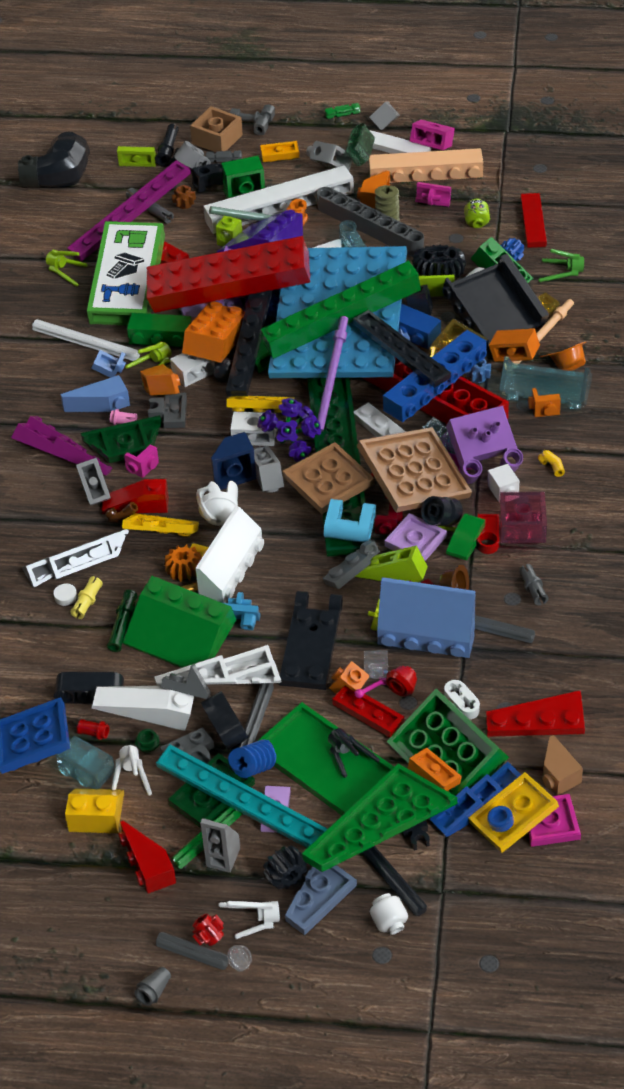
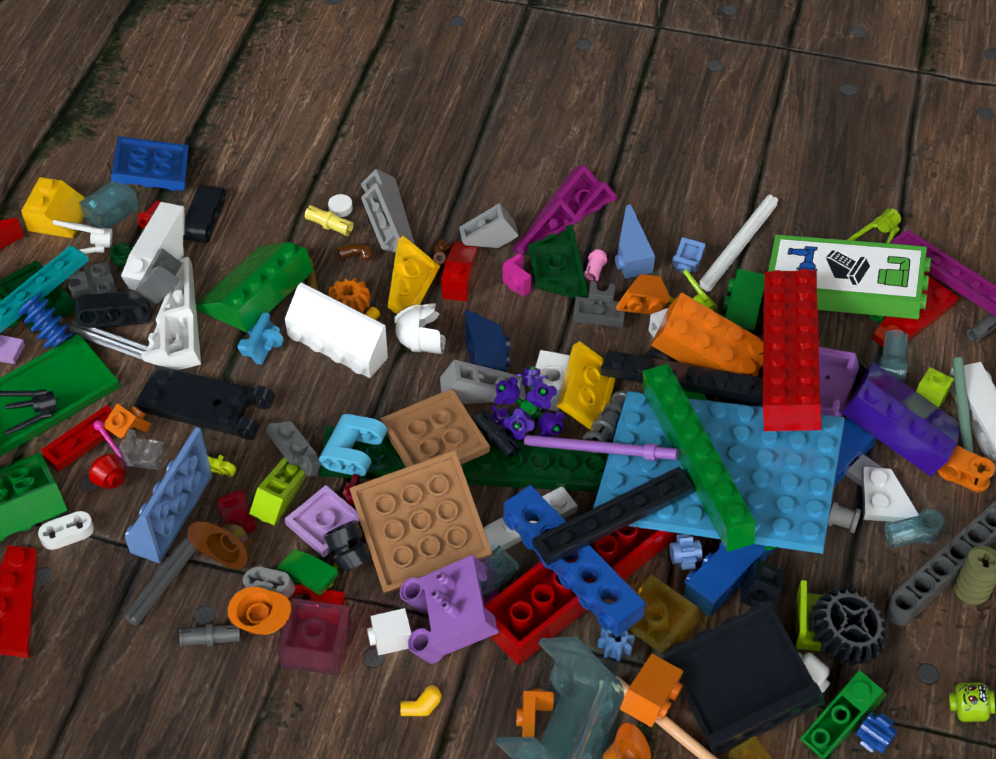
camera: 95 degrees right, 5 degrees up
(120, 572) = (356, 249): none -> reddish brown arm
(124, 614) = (261, 238): dark green pin -> none
(194, 248) = (895, 353): none -> clear light blue piece
(292, 386) = (607, 421): none -> dark grey piece
(320, 442) = (497, 434): none -> black pin
(477, 555) = (270, 579): none -> light grey beam
(513, 546) = (259, 610): none -> orange piece

